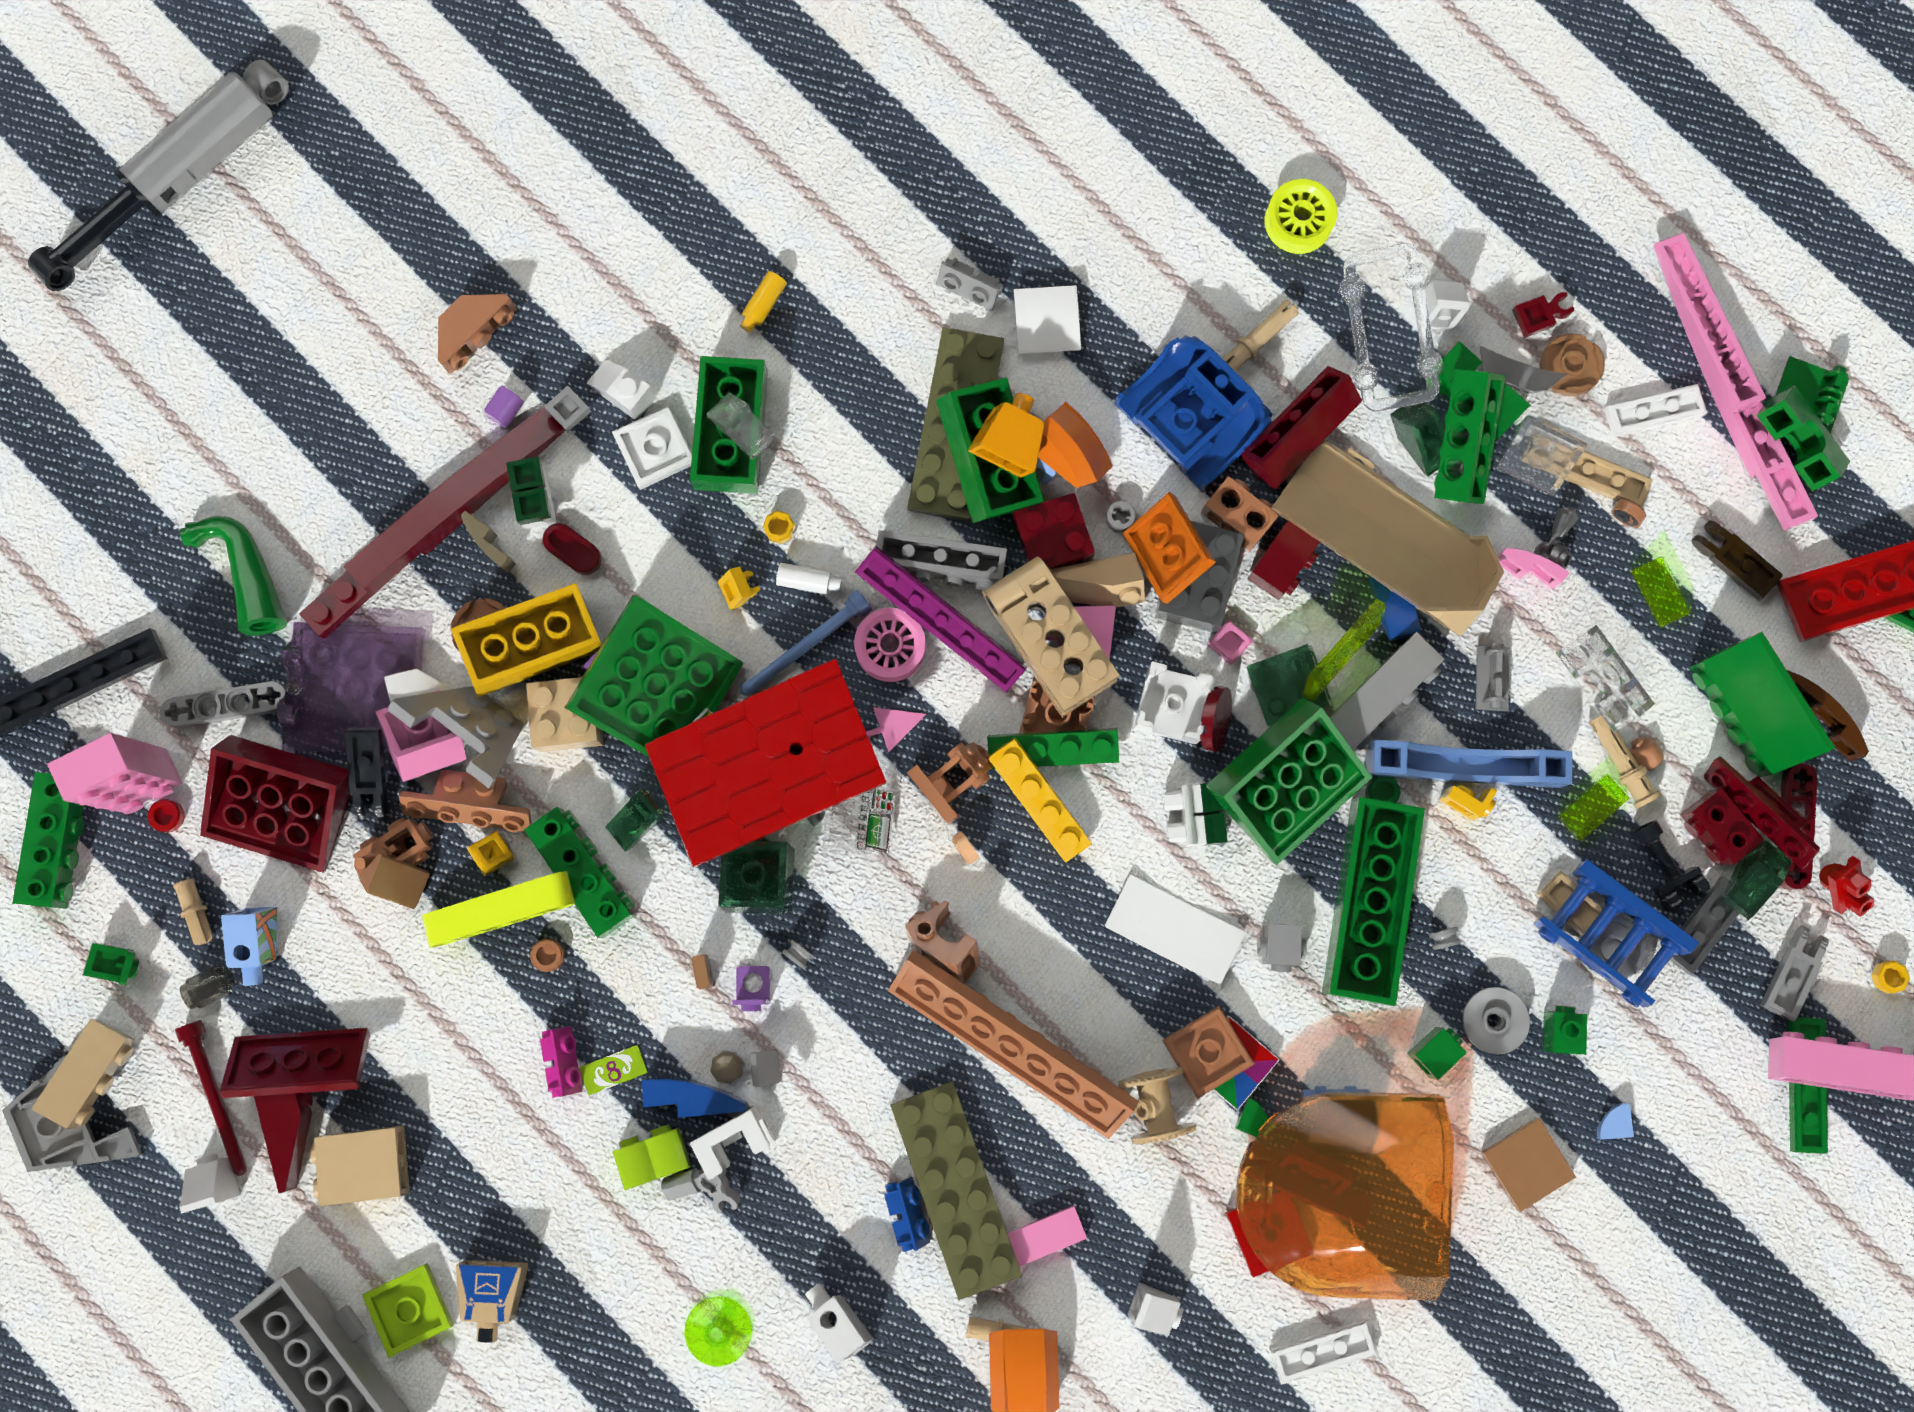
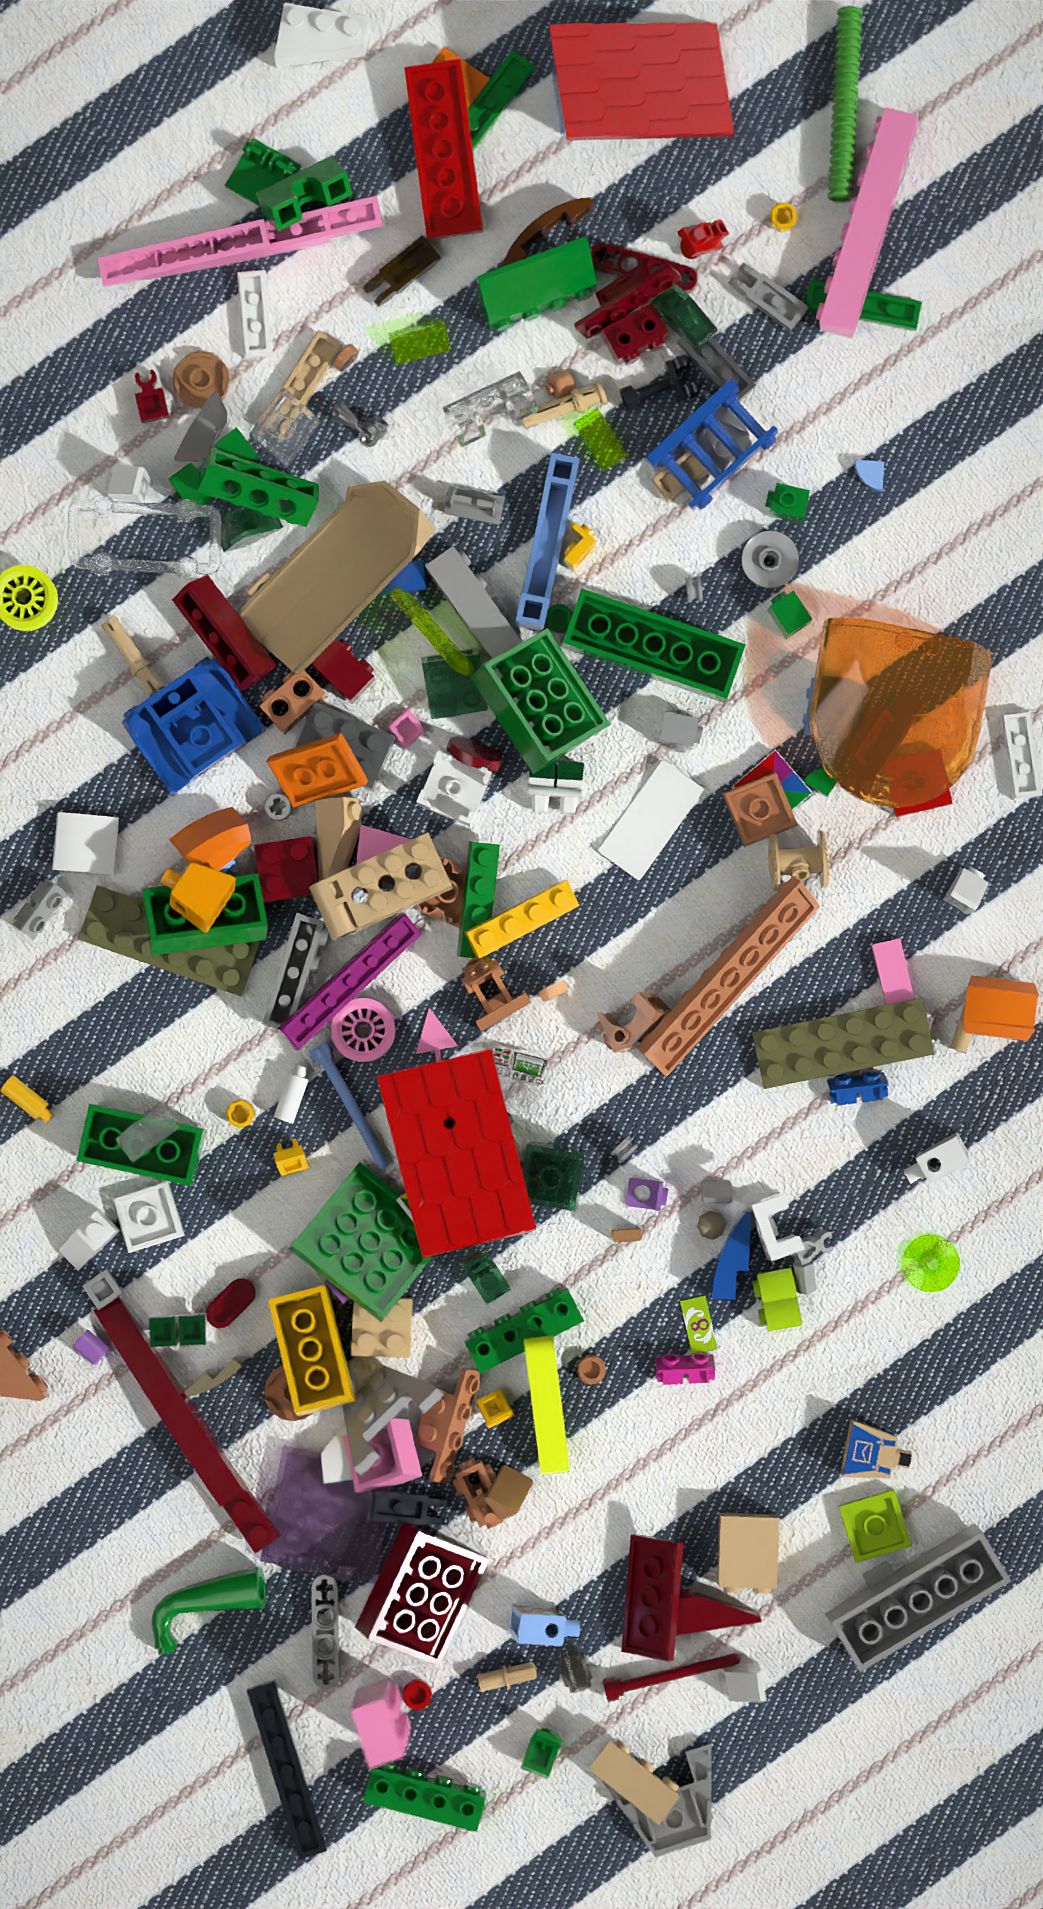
camera: 80 degrees left, 5 degrees up
(1522, 562) = (376, 459): bright pink slope -> none
(1528, 1164) = (894, 554): medium nougat tile -> none

